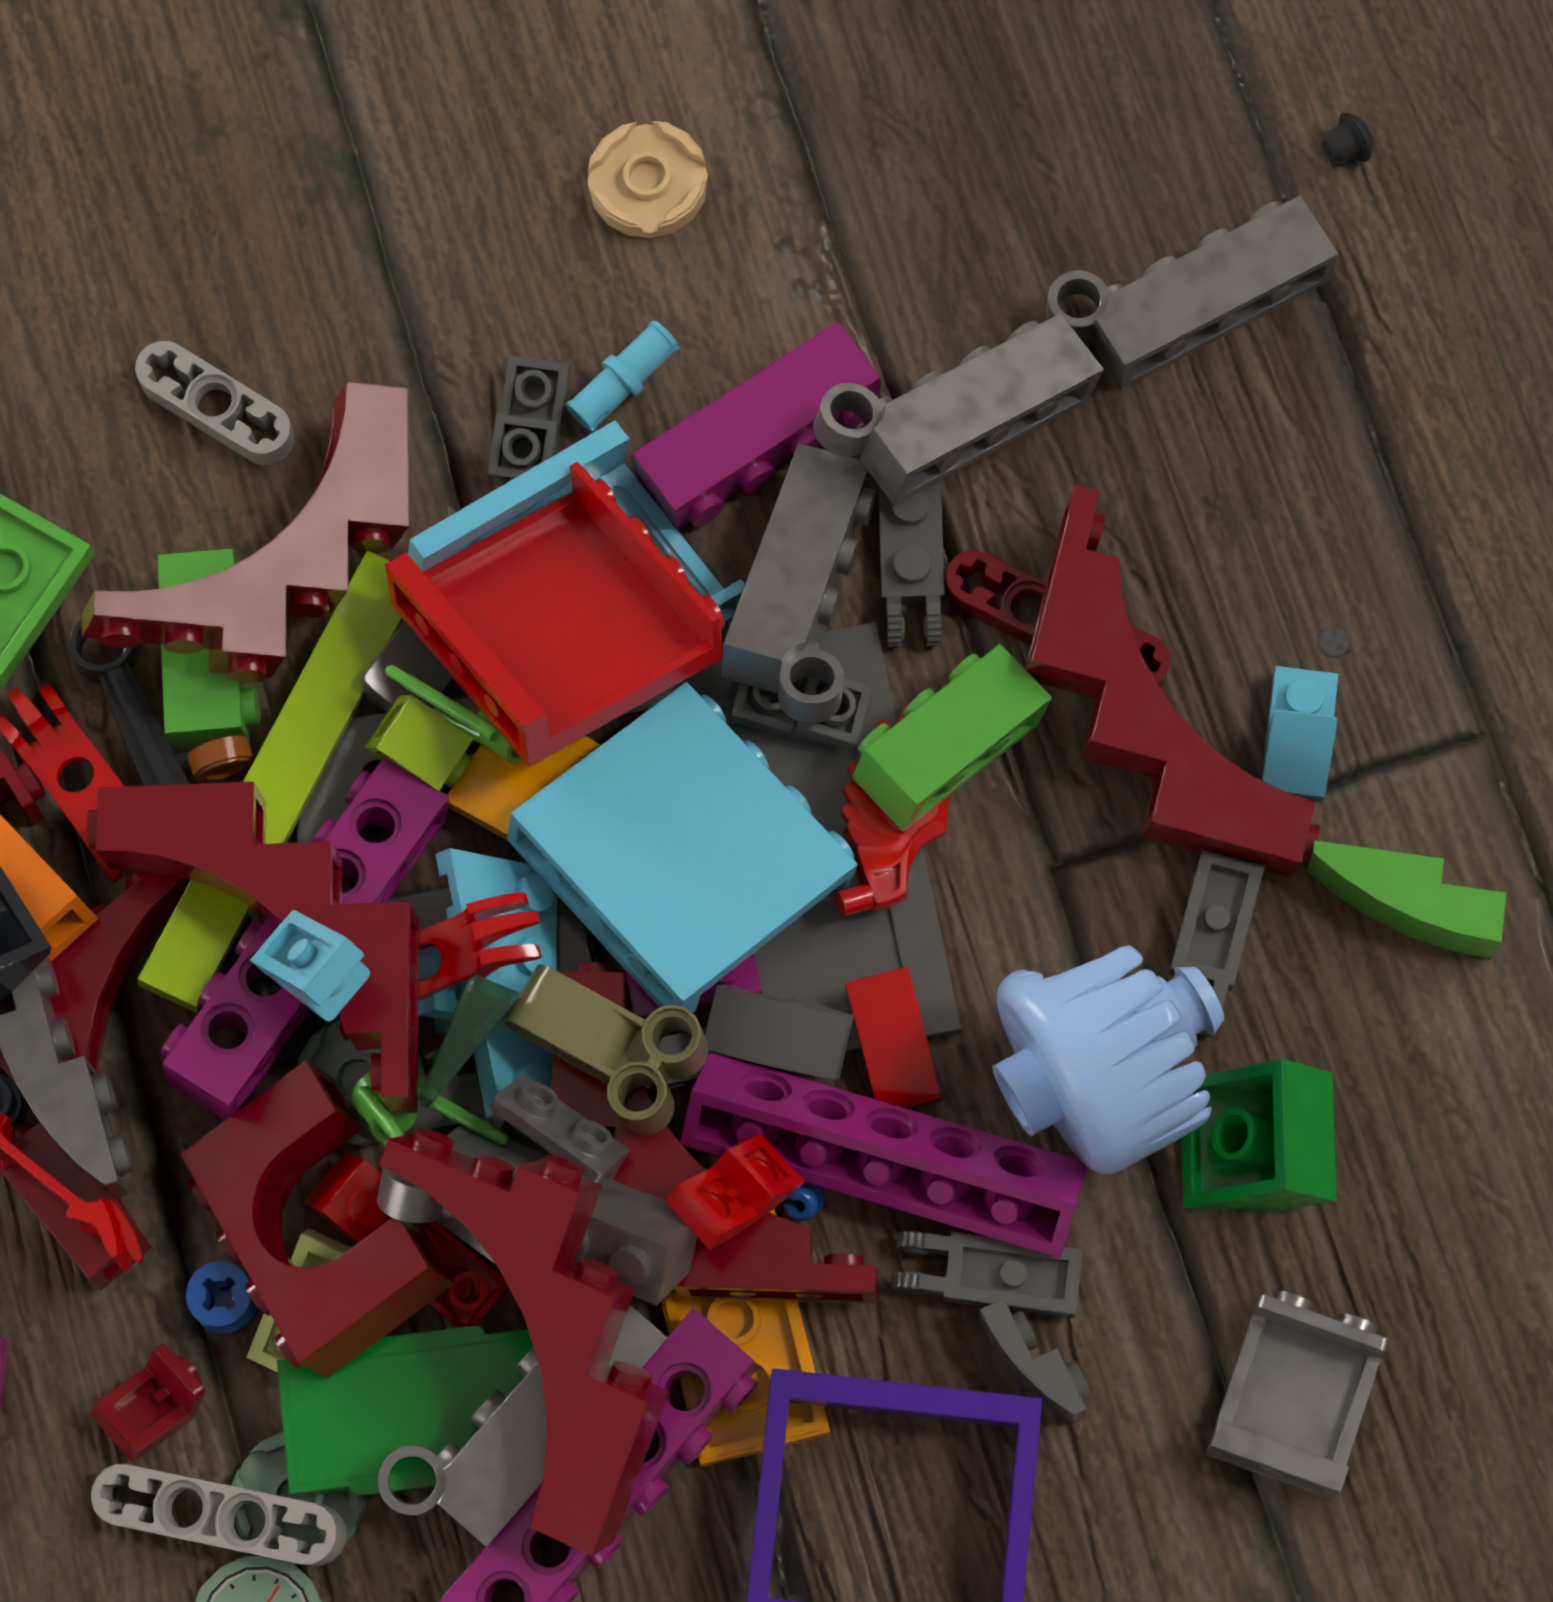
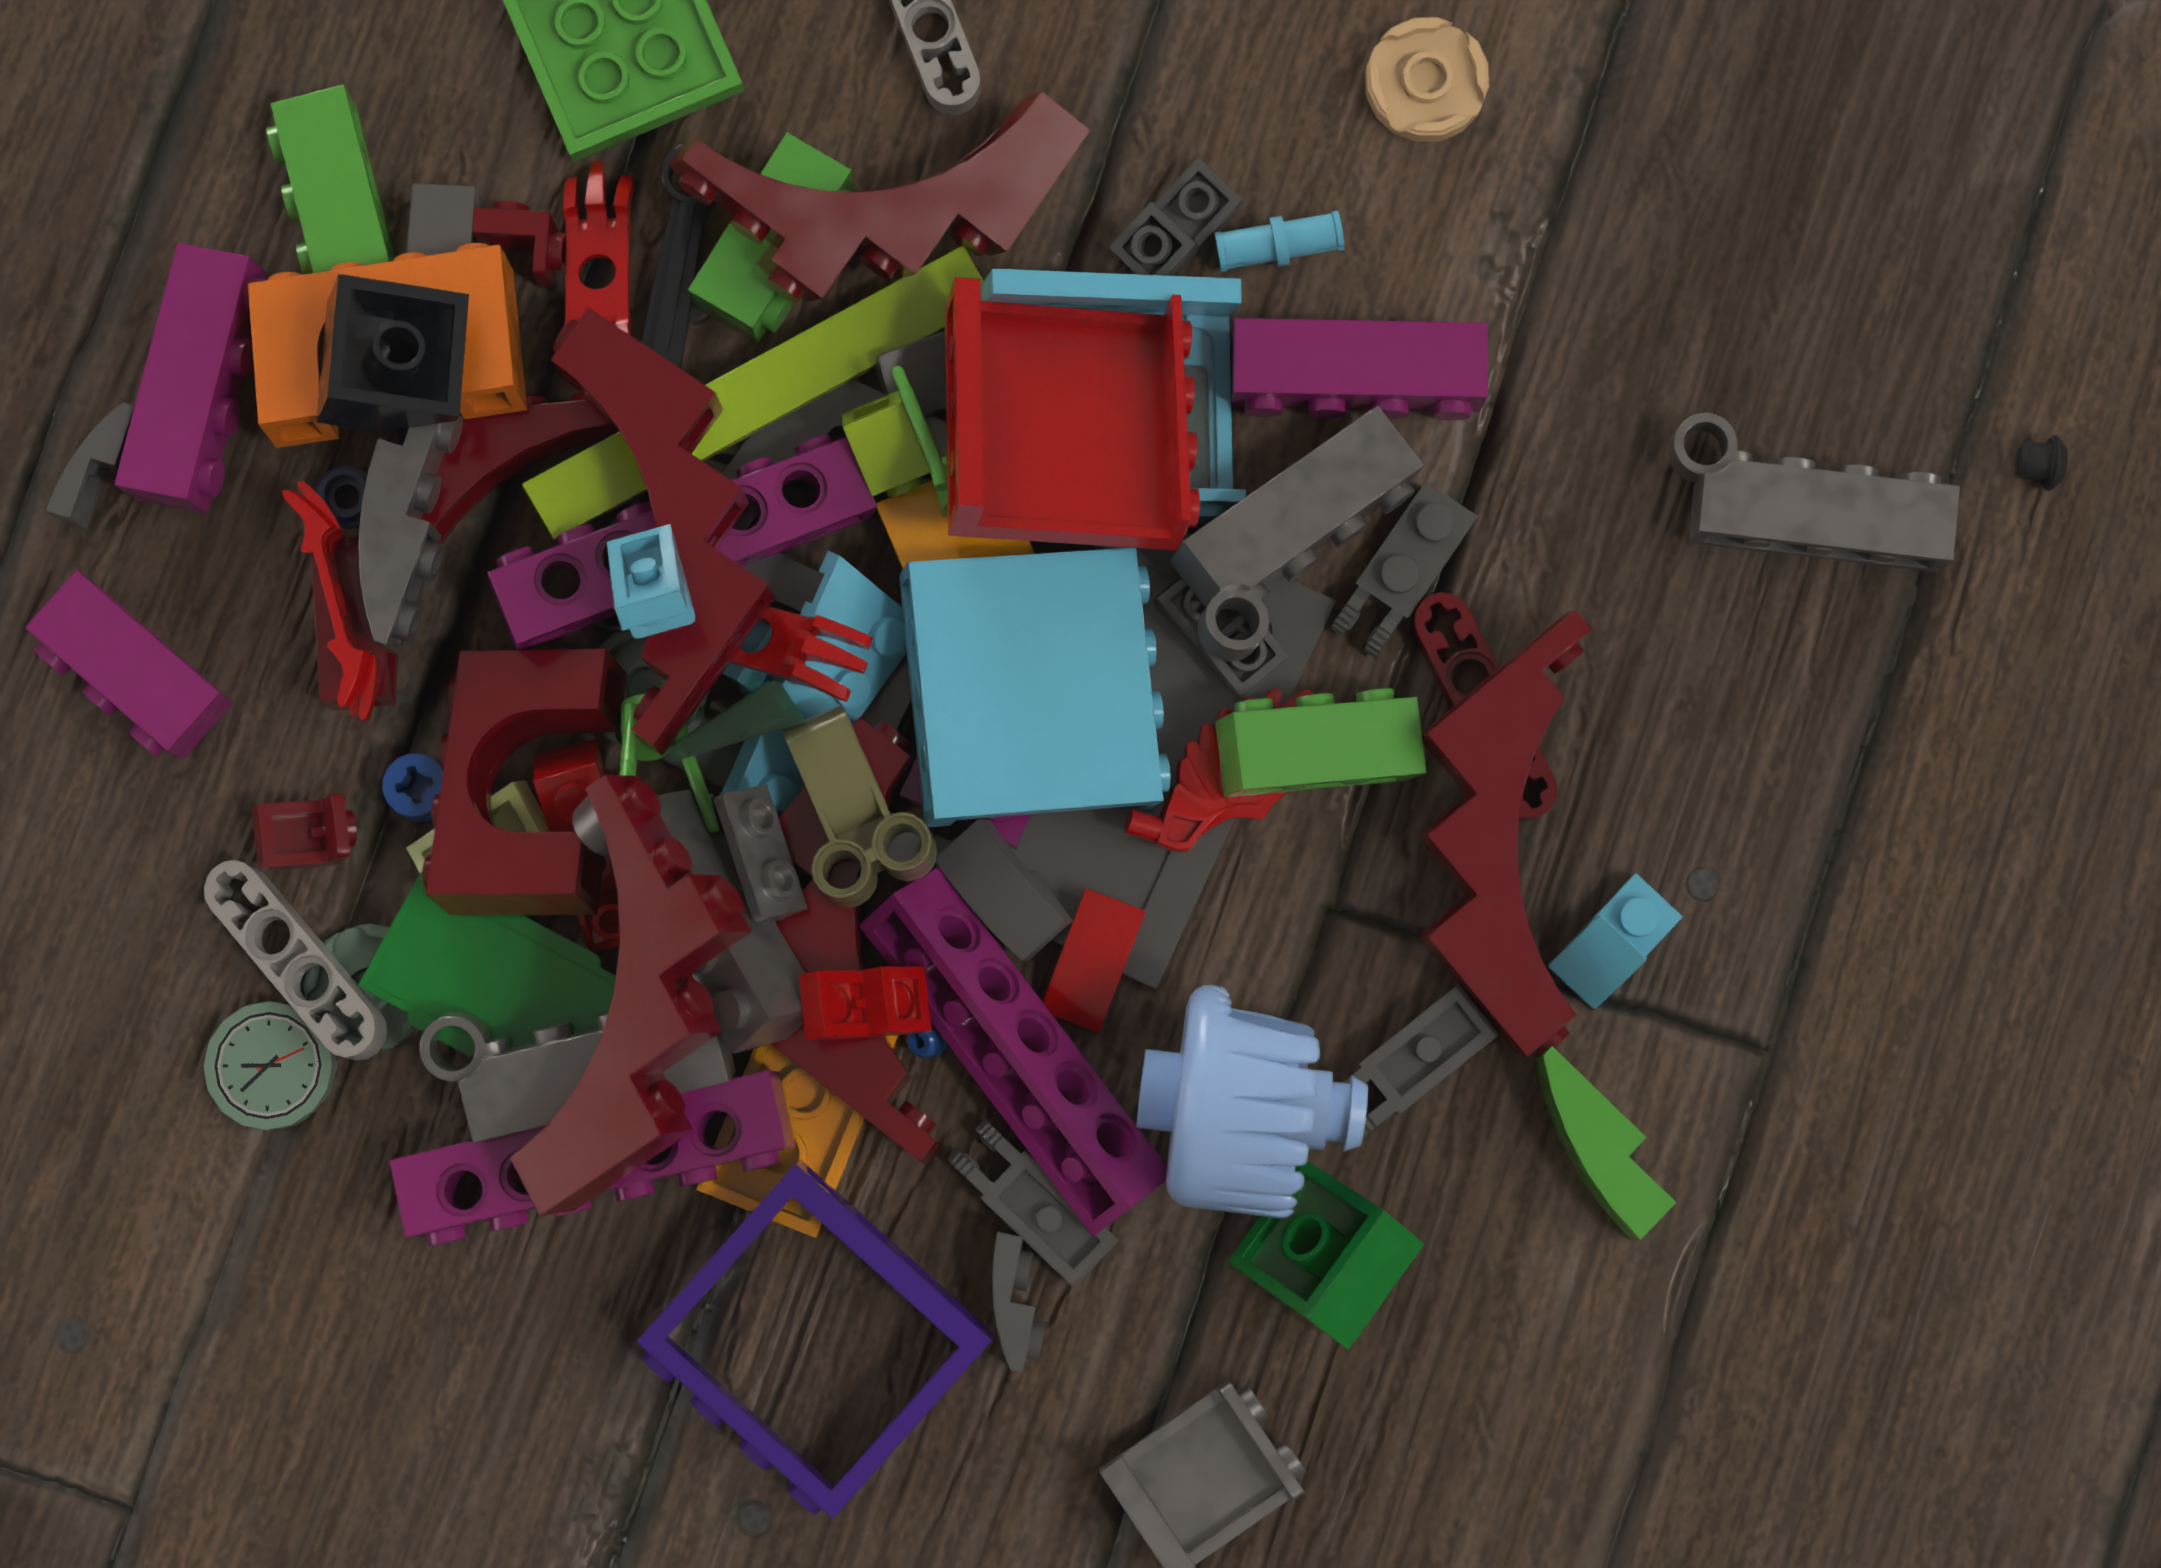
camera: 30 degrees right, 10 degrees up
(221, 759) = (722, 341): dark orange tile -> none
(964, 412) = (1536, 476): flat silver hinge -> none

